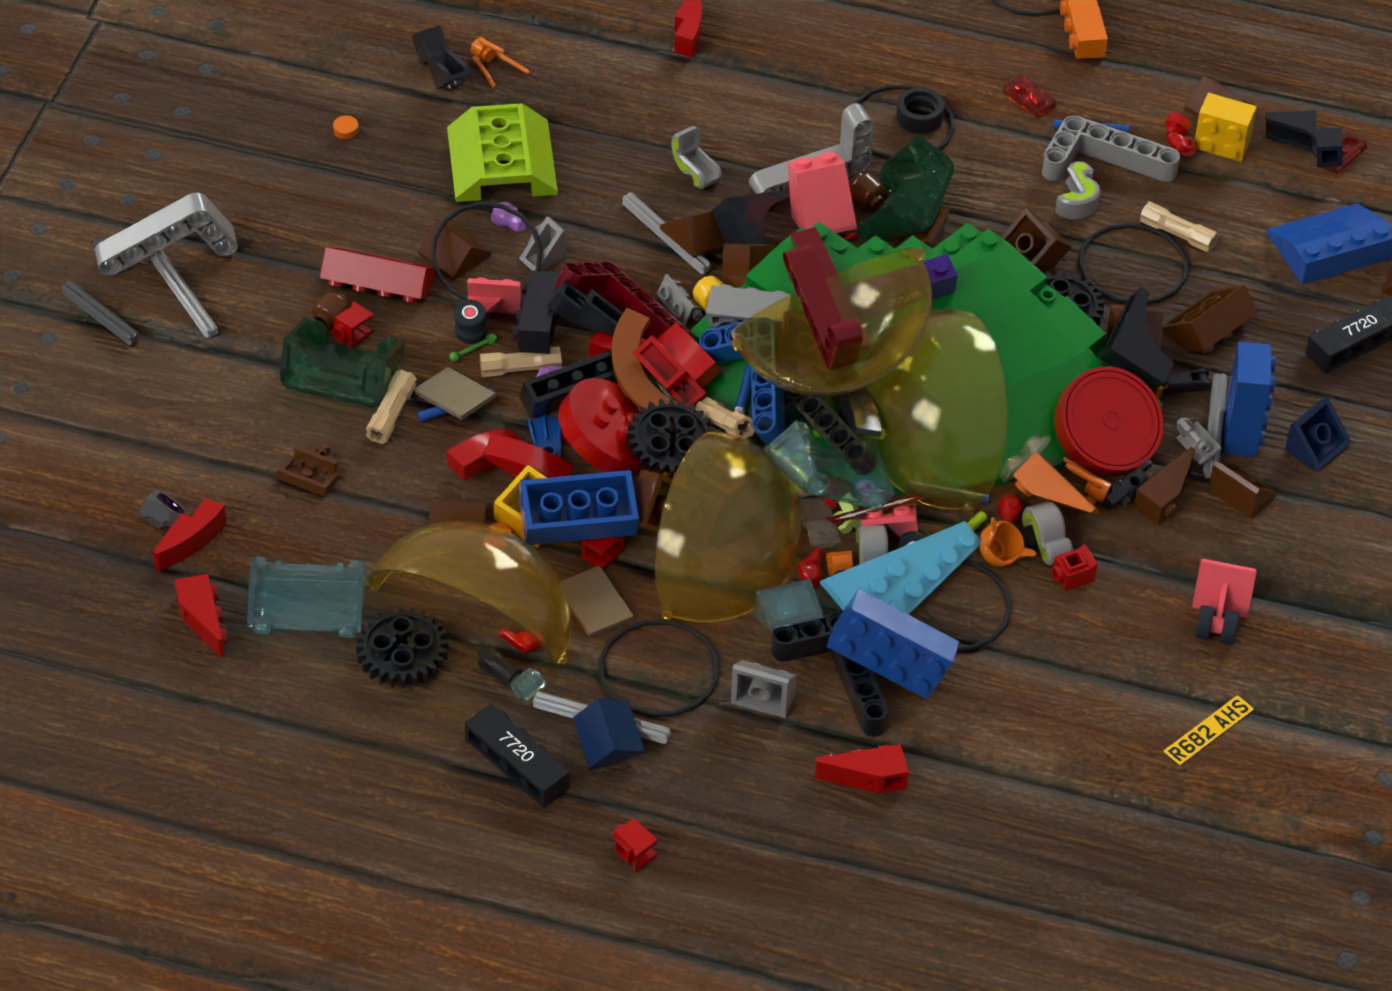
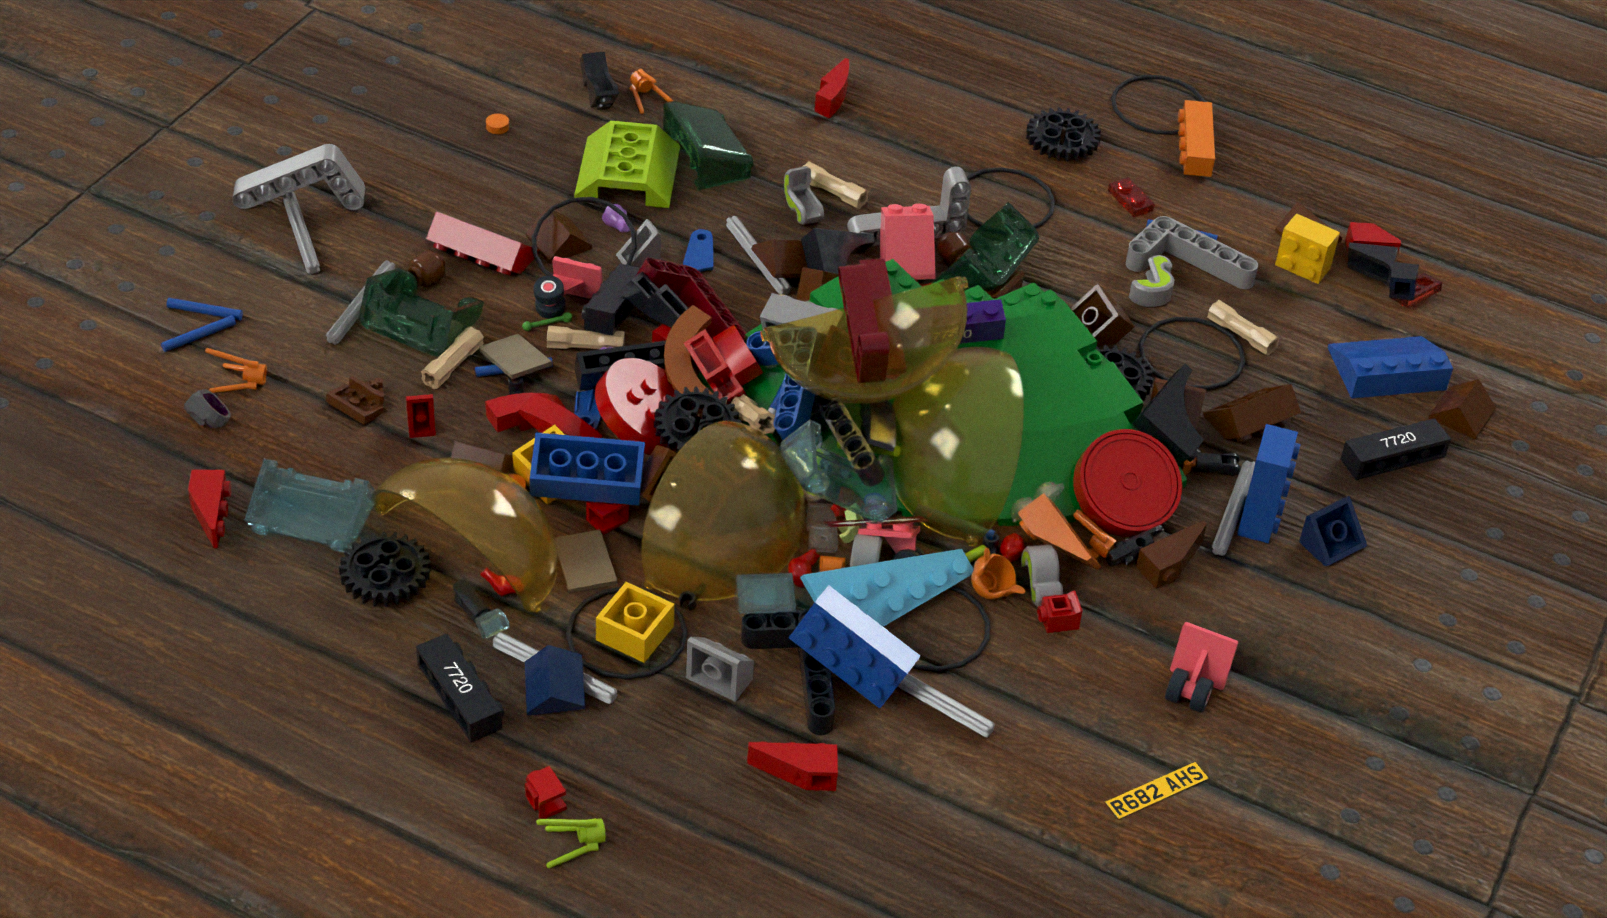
camera: 10 degrees right, 5 degrees down
(100, 312) = (220, 236): dark grey axle -> none
(114, 398) = (204, 308): none -> blue bar
(118, 427) = (198, 333): none -> blue bar
(190, 534) = (224, 434): red slope -> none
(193, 460) = (253, 372): none -> orange plant
(273, 362) = (352, 312): none -> light grey axle
(349, 325) = (438, 283): red window -> none
(382, 476) = (420, 416): none -> red slope
(466, 429) = (516, 388): none -> black hand
(579, 112) = (708, 142): none -> clear green windscreen
(605, 240) = (700, 251): none -> blue piece
(668, 656) = (635, 622): none -> yellow brick
(677, 301) = (747, 309): light grey hinge -> none
(687, 875) = (588, 831): none -> lime plant
(709, 619) = (685, 596): none -> black hand
(738, 143) = (846, 191): none -> tan axle
(920, 123) = (1028, 181): black tyre -> none
(961, 35) = (1080, 138): none -> black gear
(989, 510) = (991, 544): none -> black hand
(994, 685) = (947, 705): none -> light grey axle
(1177, 127) = (1263, 244): red arm -> none
(1198, 438) = (1213, 515): light grey hinge -> none
(1239, 488) = (1244, 568): reddish brown slope -> none
(1283, 100) = (1370, 234): none -> red slope

